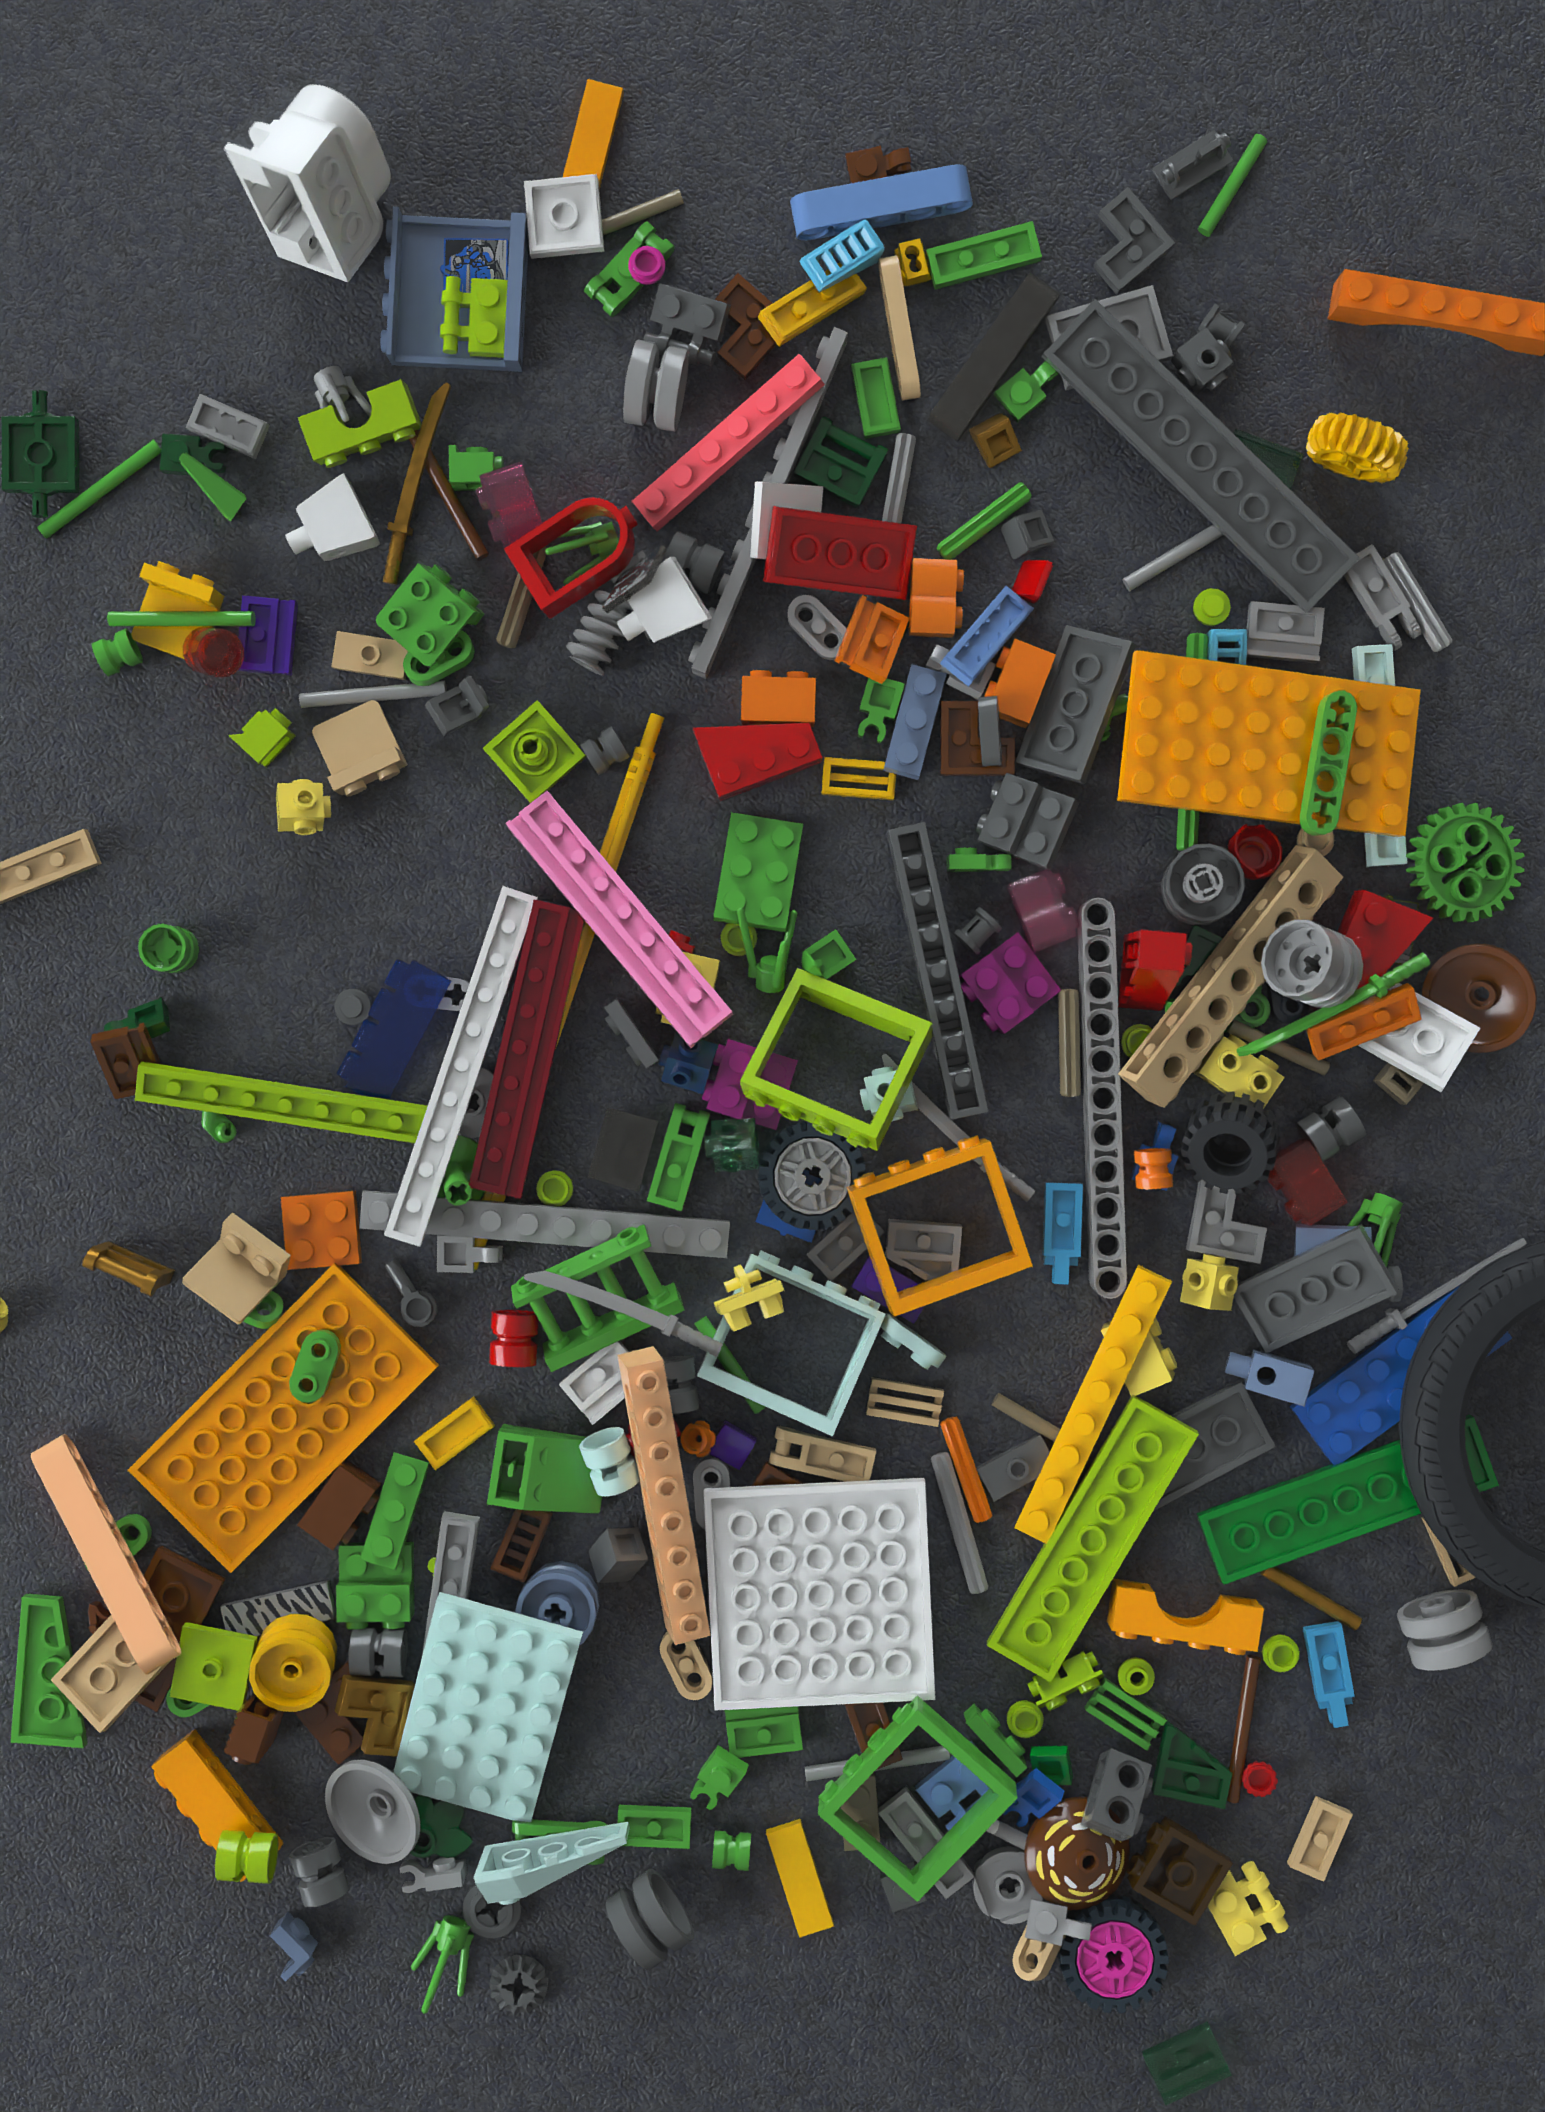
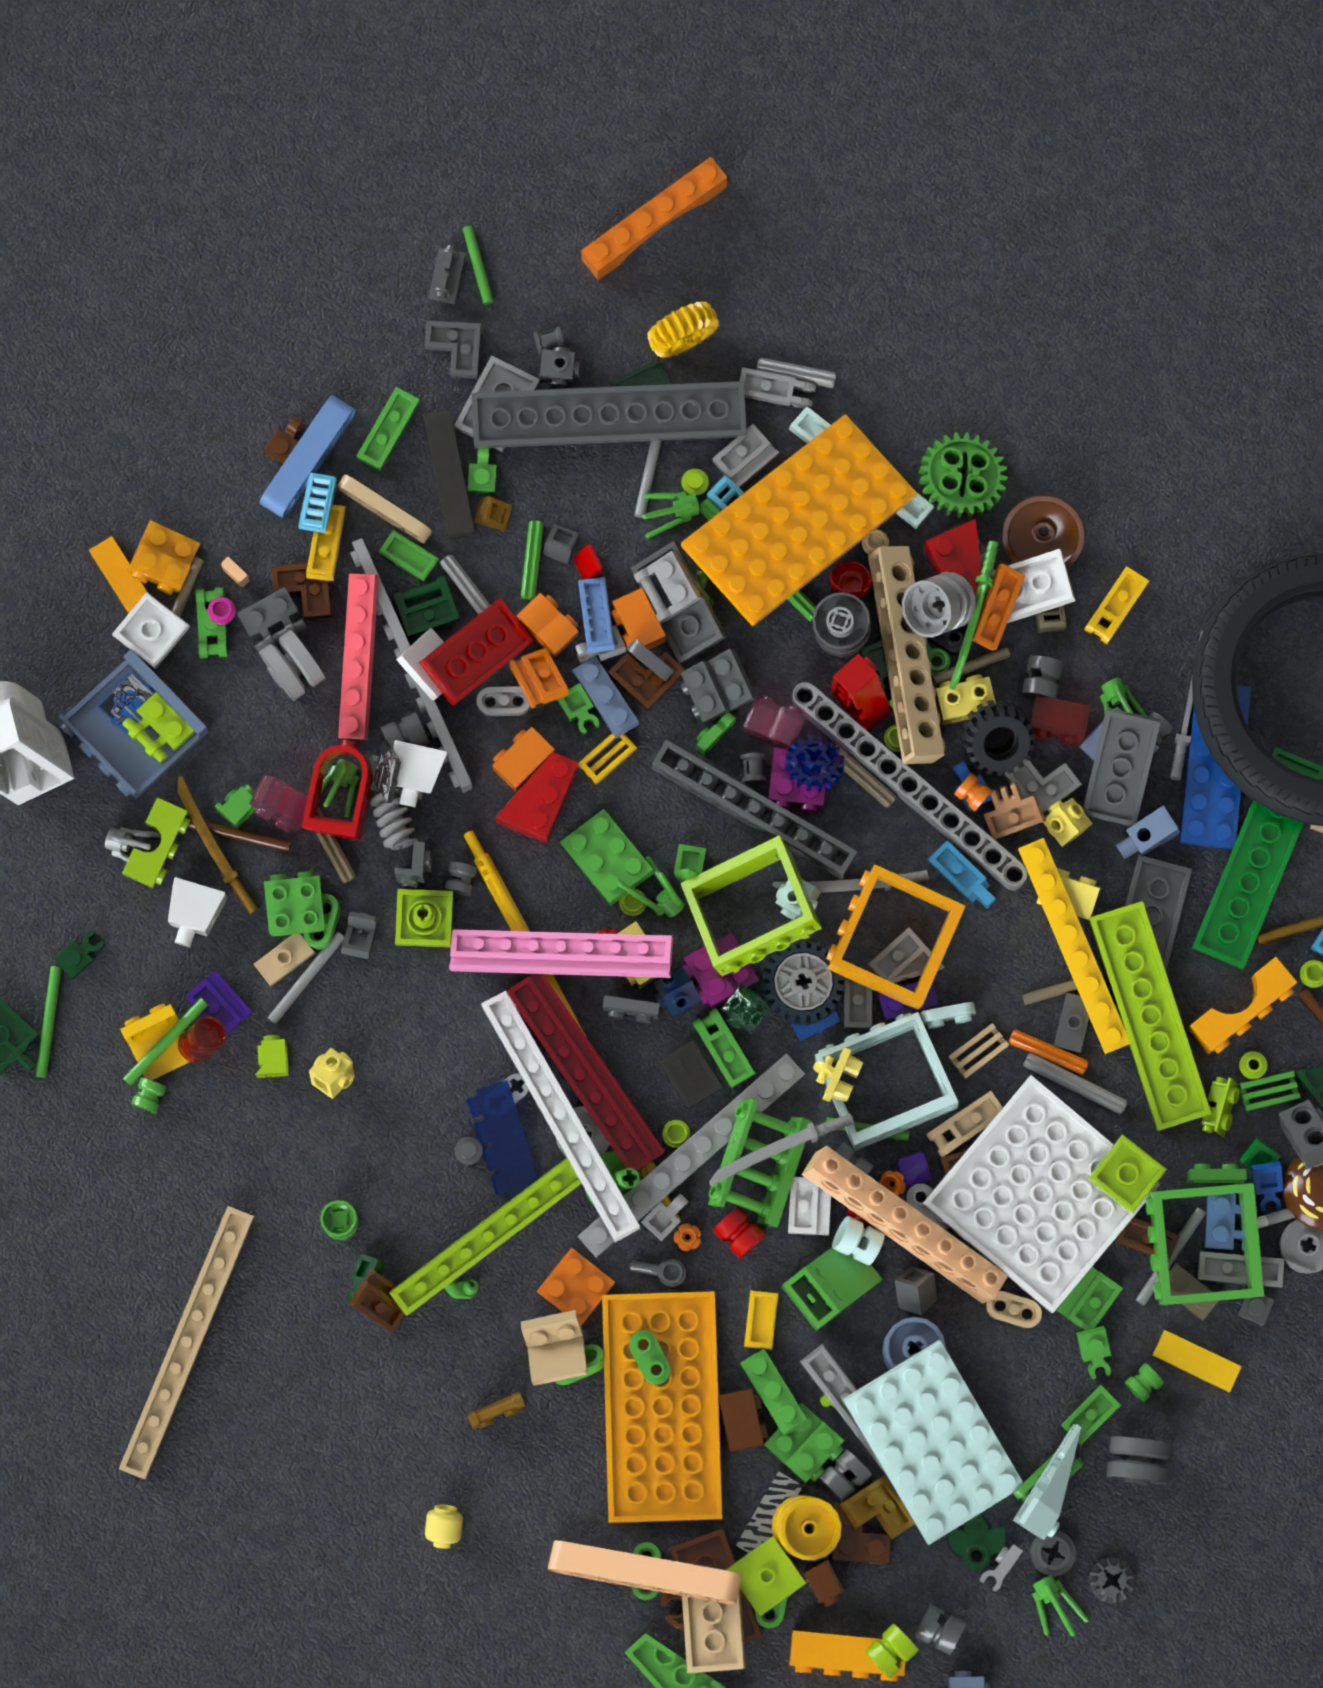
camera: 50 degrees left, 10 degrees down
(220, 492) = (117, 955): bright green slope -> none
(227, 426) = (84, 918): light grey plate -> none
(359, 748) = (329, 1012): tan bracket -> none
(372, 1811) = (928, 1576): light grey dish -> none
(476, 1290) = (687, 1229): none -> orange plate
(509, 1570) = (868, 1361): reddish brown slope -> none
(577, 699) = (420, 865): none -> dark grey bracket
(647, 158) = (163, 558): none -> light orange plate
(699, 242) = (235, 572): none -> light nougat tile
(909, 277) = (349, 460): yellow piece -> none
(913, 1663) = (1127, 1174): none -> lime plate
(1025, 1719) = (1221, 1149): lime plate -> none
(1039, 973) = (815, 763): none -> clear blue gear
(1091, 681) = (675, 582): none -> light grey plate
(1170, 1223) = (1012, 812): none -> medium nougat hinge
(1177, 620) = (683, 507): none -> bright green plant
(1321, 761) = (834, 500): bright green beam -> none
(1474, 1132) = (1117, 604): none -> yellow plate

